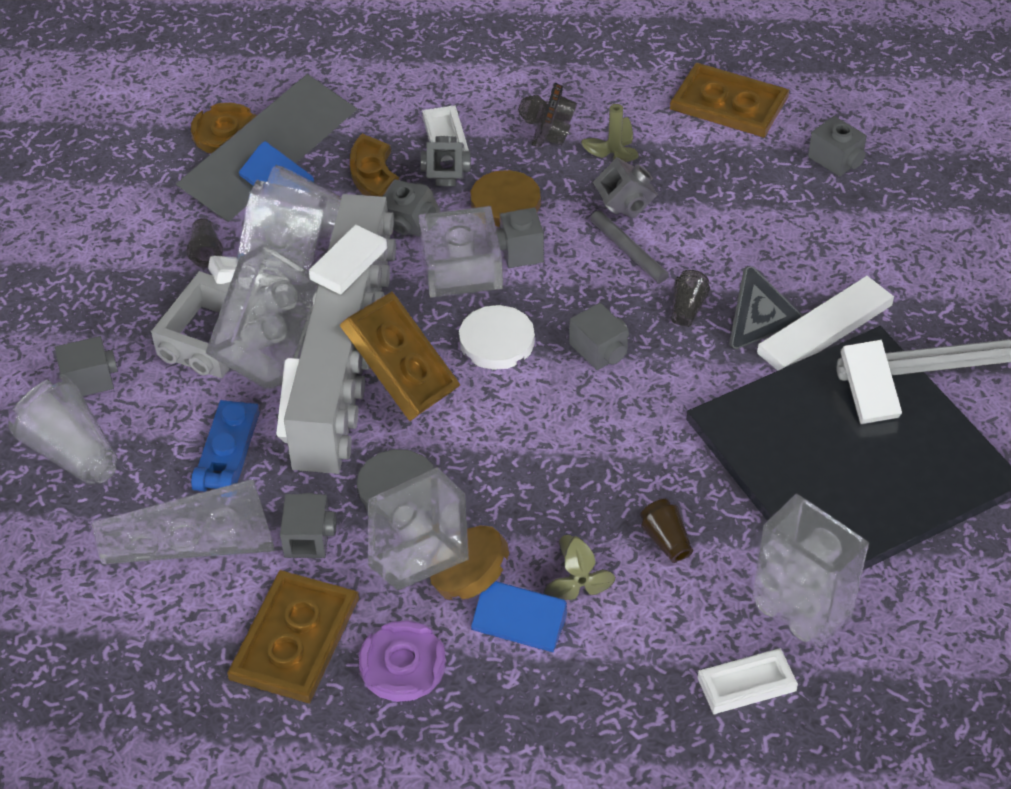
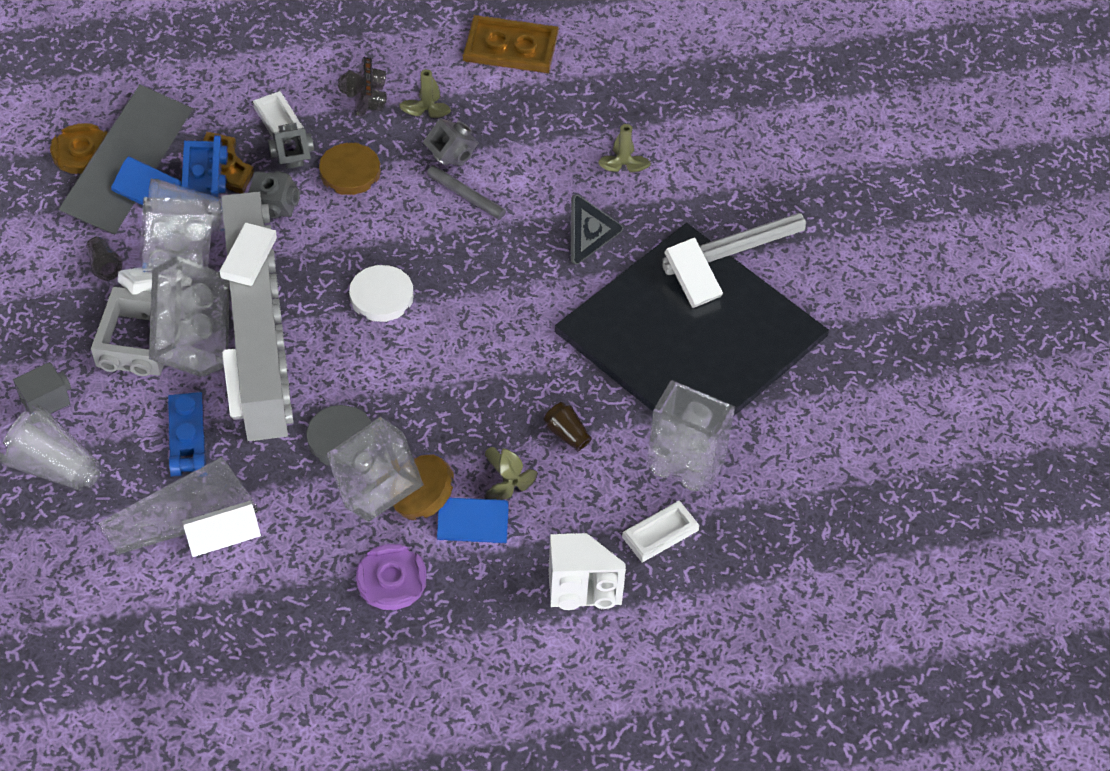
camera: 20 degrees left, 5 degrees up
(224, 559) = (221, 528): none -> white tile
(293, 636) = (297, 577): pearl gold tile -> none
(306, 525) = (280, 485): dark grey brick -> none
(344, 164) = (203, 166): none -> blue bracket
(400, 355) = (313, 327): pearl gold tile -> none
(460, 251) = (330, 225): clear brick -> none
(521, 237) = (376, 202): dark grey brick -> none
(599, 336) = (466, 276): dark grey brick -> none
(629, 708) = (583, 573): none -> white slope
(688, 296) = (528, 227): clear smoke cone -> none
(826, 324) = (642, 229): white tile -> none
(828, 231) = (623, 148): none -> olive plant
(837, 146) = (612, 72): dark grey brick -> none

